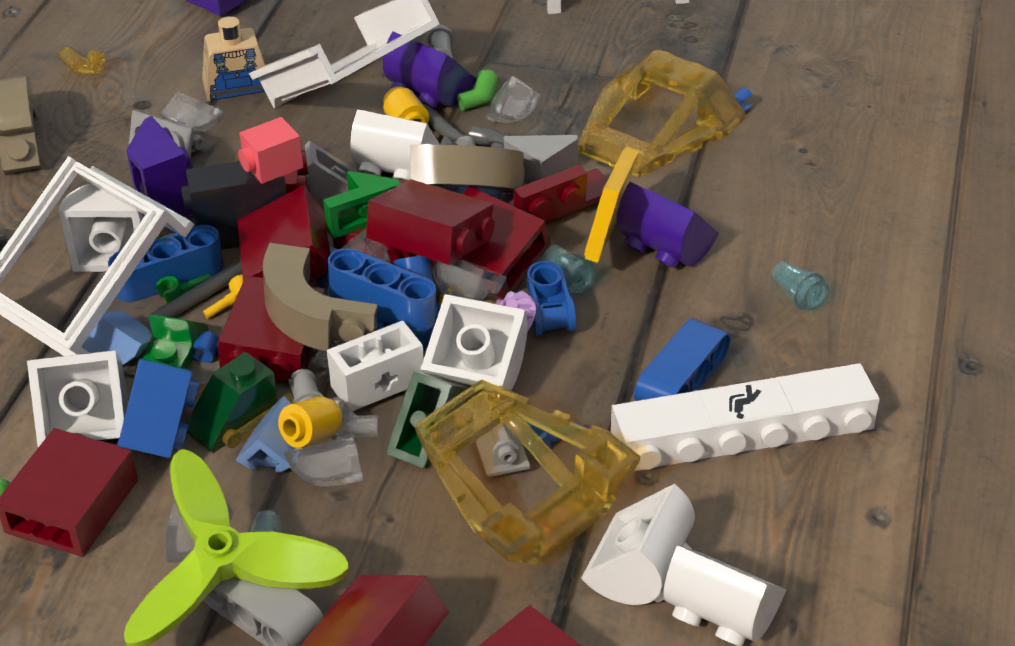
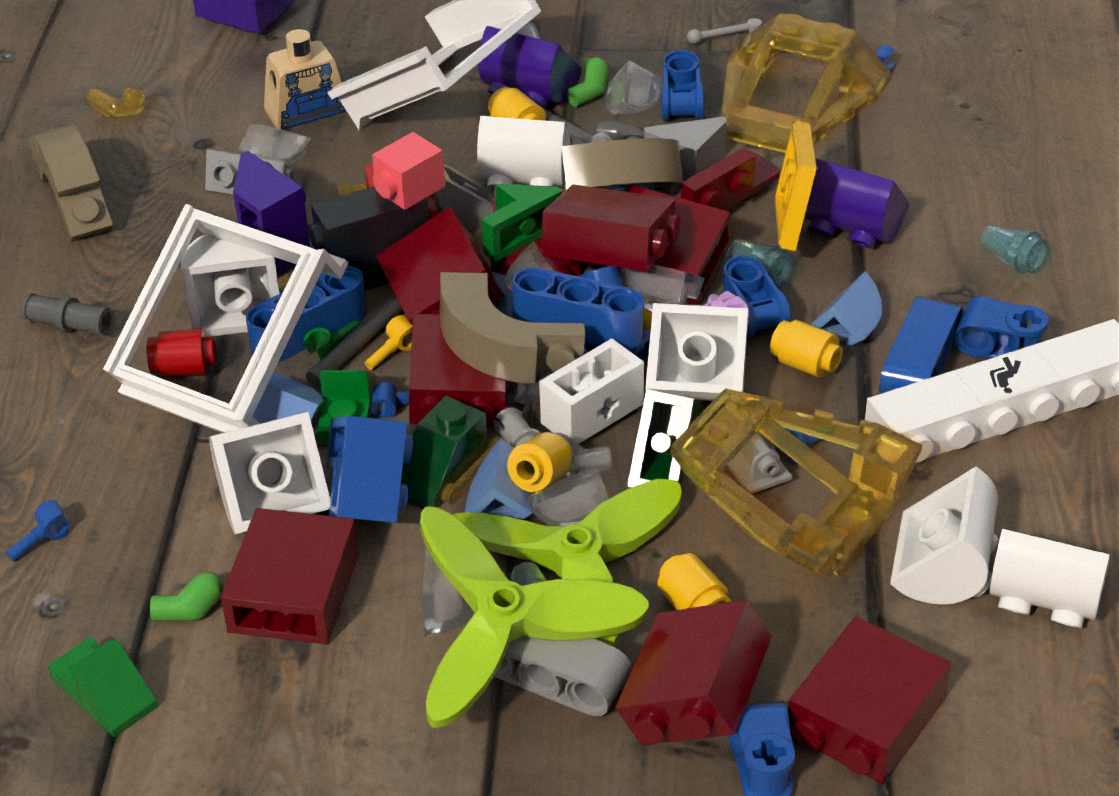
camera: 10 degrees left, 0 degrees up
(51, 283) = (181, 353): none -> red brick
(321, 505) = (584, 548): none -> lime piece
(403, 552) = (690, 583): none -> yellow brick
(553, 103) = (681, 85): none -> blue piece
(581, 351) = (806, 348): none -> yellow brick
(585, 60) = (694, 36): none -> light grey hinge
(633, 324) = (853, 311): none -> medium blue brick
(756, 356) = (998, 327): none -> blue piece

